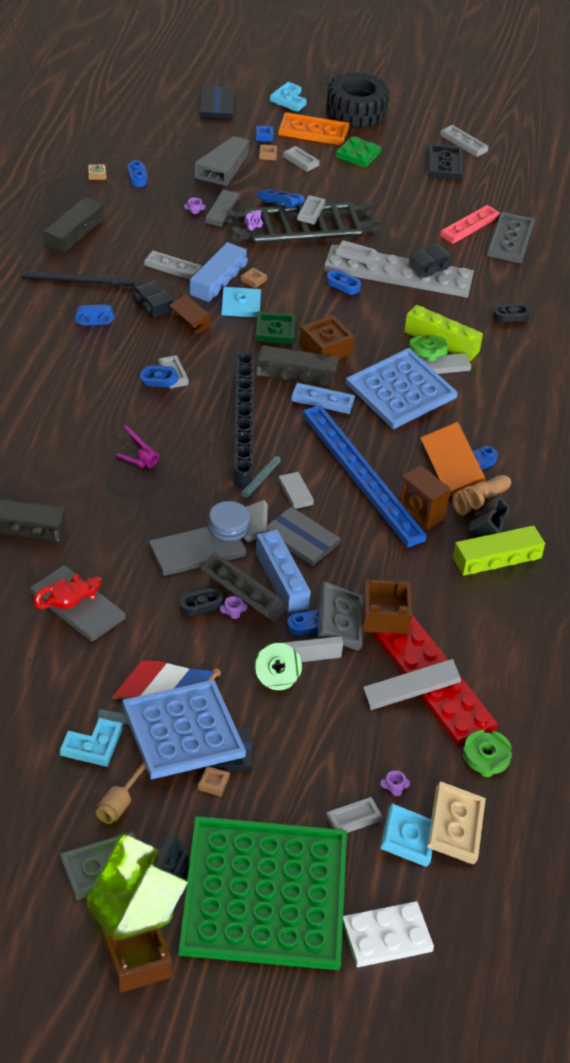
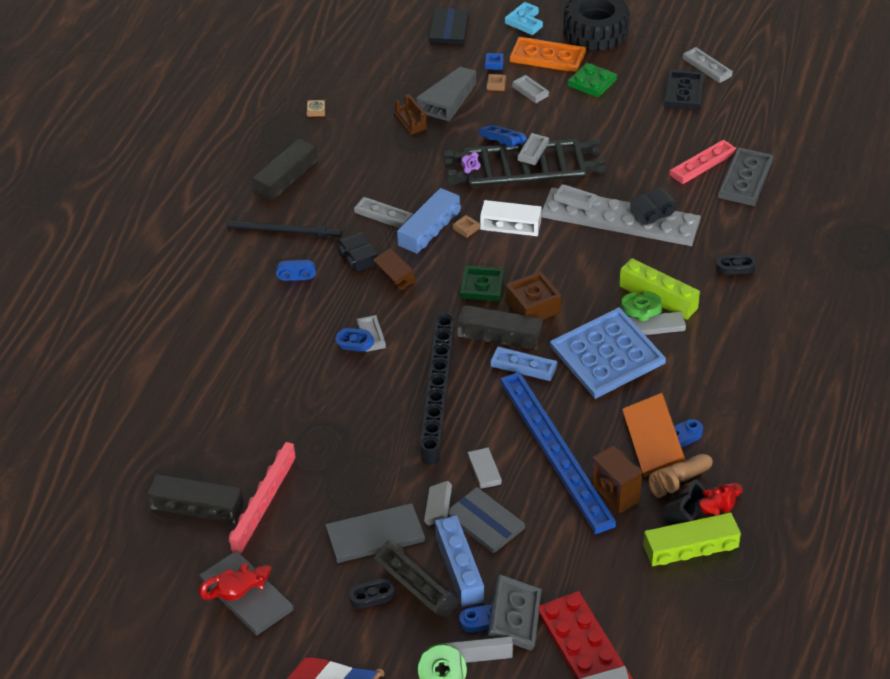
camera: 10 degrees right, 0 degrees up
(86, 514) = (265, 492): none -> coral plate
(137, 173) = (357, 109): blue plate -> none
(146, 454) = (332, 427): magenta plant -> none
(190, 179) = (410, 115): none -> reddish brown hinge
(194, 205) = (412, 144): medium lavender plate -> none
(218, 213) = (444, 142): dark grey tile -> none
(229, 521) = (409, 504): sand blue head -> none
(233, 607) = (402, 595): medium lavender plate -> none
(241, 302) = (449, 253): medium azure plate -> none
(260, 477) = (454, 447): clear light blue bar -> none
(296, 270) = (510, 218): none -> white brick
(343, 282) = (559, 230): blue plate -> none
(387, 606) = (562, 604): reddish brown container -> none
(521, 514) = (720, 498): none -> red animal

